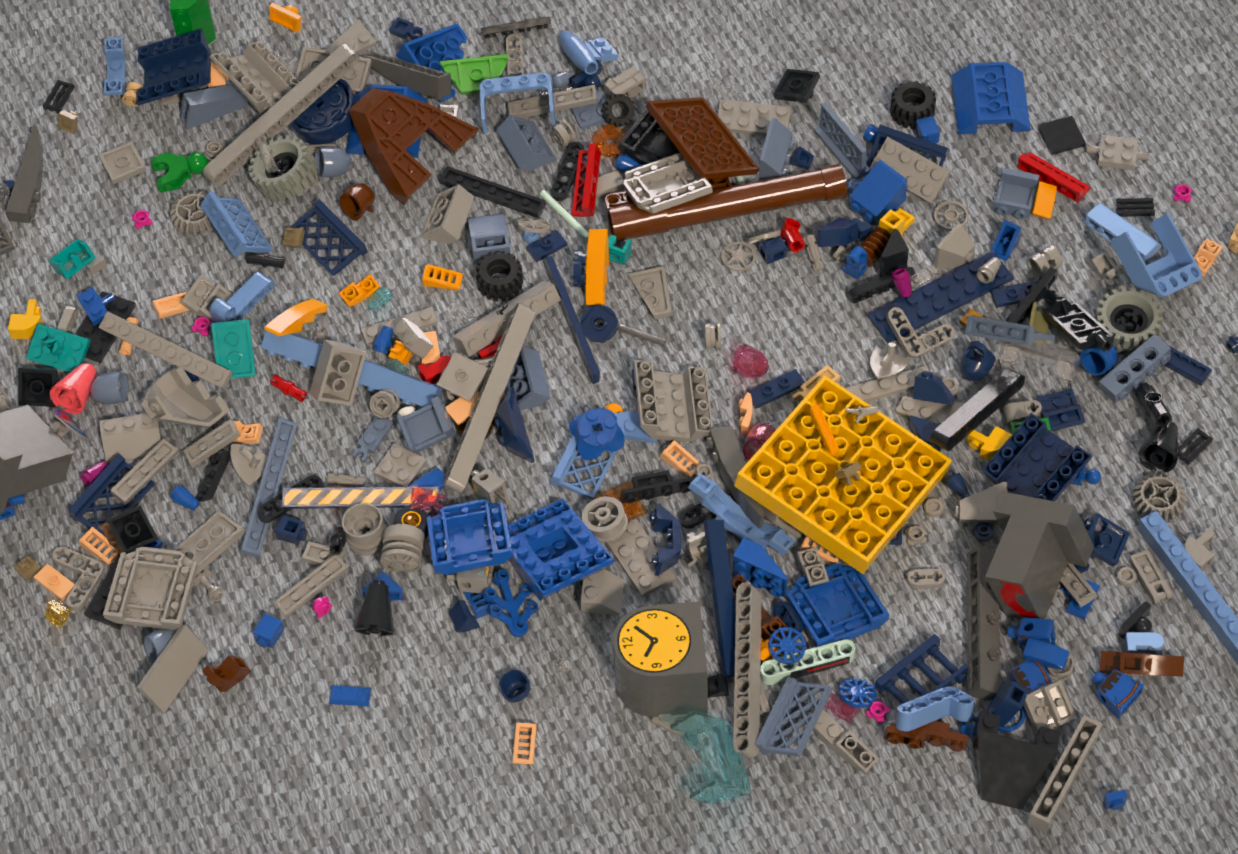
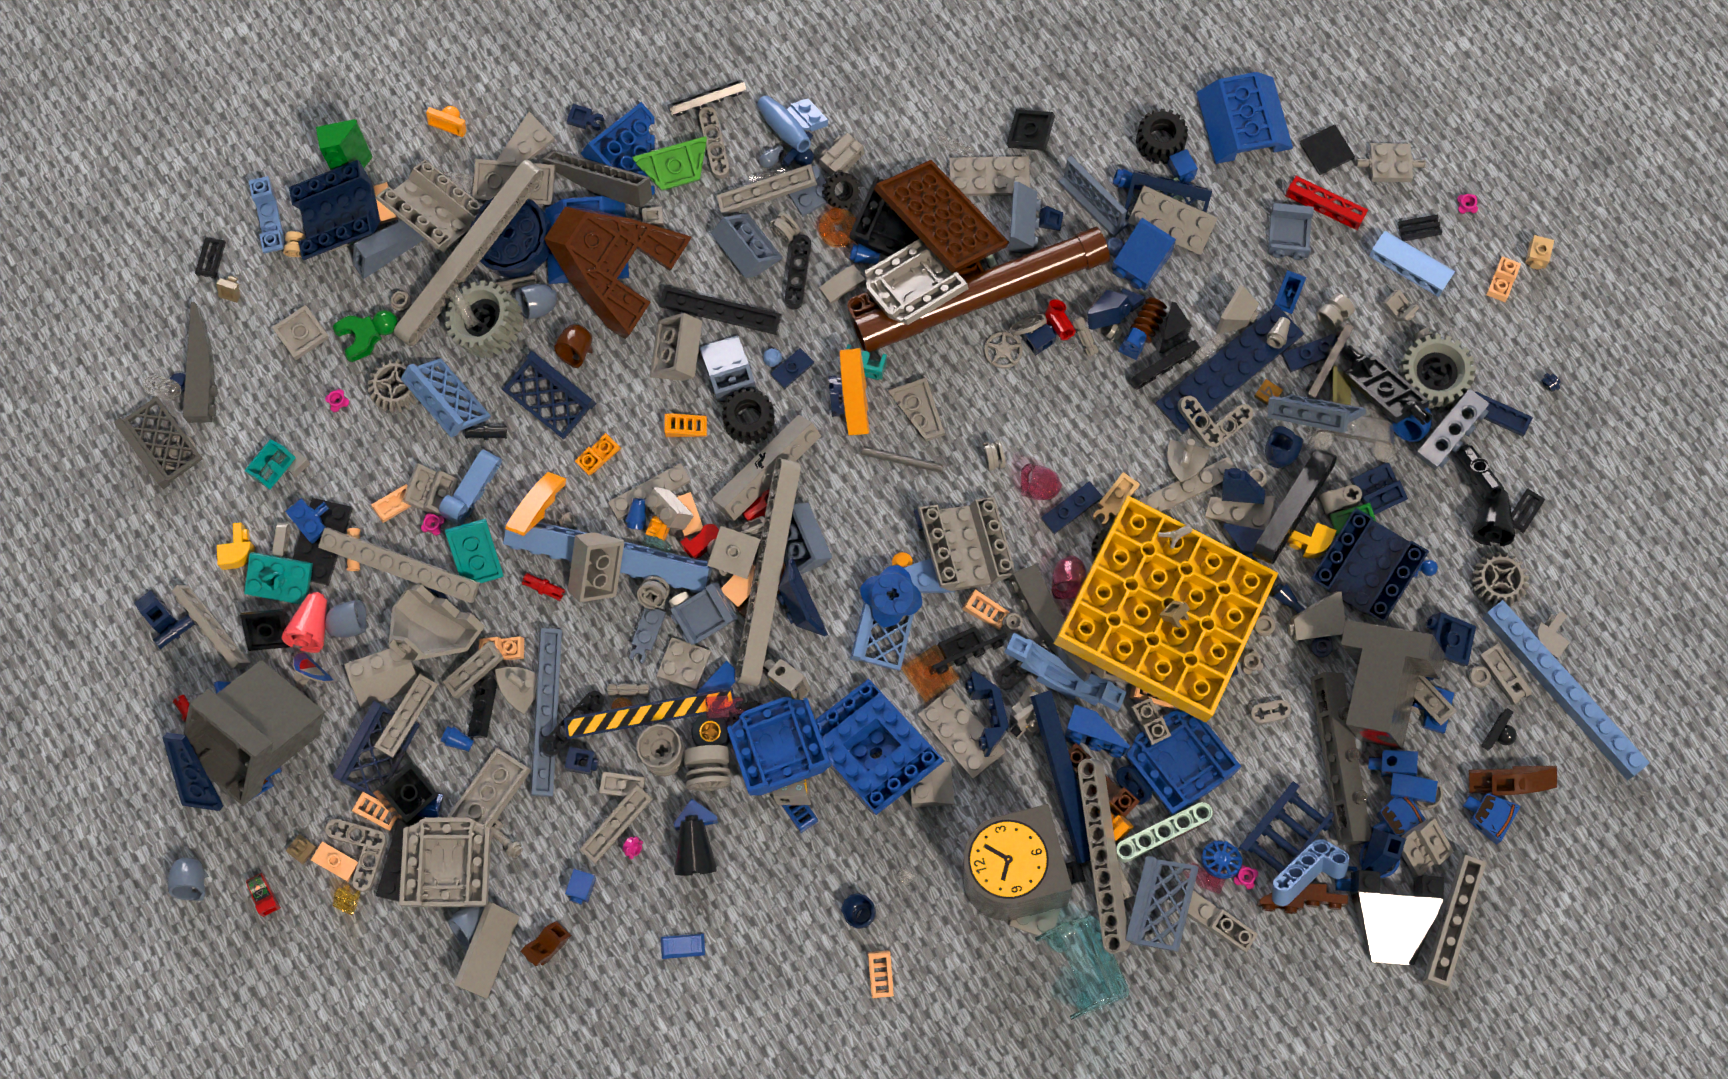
camera: 10 degrees left, 15 degrees up
(90, 474) = (351, 724): magenta cone -> none
(293, 237) = (511, 399): dark tan tile -> none
(337, 541) = (635, 768): black pin -> none
(380, 297) = (621, 461): clear light blue cone -> none
(462, 617) = (786, 836): dark blue tile -> none
(509, 604) = (835, 814): blue plant -> none
(513, 84) = (723, 176): medium blue windscreen -> none
(533, 225) = (774, 346): light grey wheel -> none
(558, 208) = (805, 326): light aqua bar -> none
(572, 320) = (837, 457): dark blue tile -> none
(590, 182) = (827, 284): red fence -> none
(605, 518) = (922, 711): light grey wheel -> none
(609, 327) = (857, 462): dark blue plate -> none
(745, 408) = (1046, 540): light nougat slope -> none
(787, 645) = (1141, 822): blue wheel -> none
(824, 430) = (1140, 565): light orange axle -> none
(899, 220) = (1169, 287): yellow brick -> none
(901, 279) = (1188, 360): magenta cone -> none
(950, 215) = (1224, 266): light grey wheel -> none
(1044, 200) = (1323, 234): light orange slope -> none
(1115, 800) = (1510, 943): blue plate -> none
(1143, 642) = (1510, 753): light blue leg -> none
(1167, 274) = (1471, 308): medium blue windscreen -> none

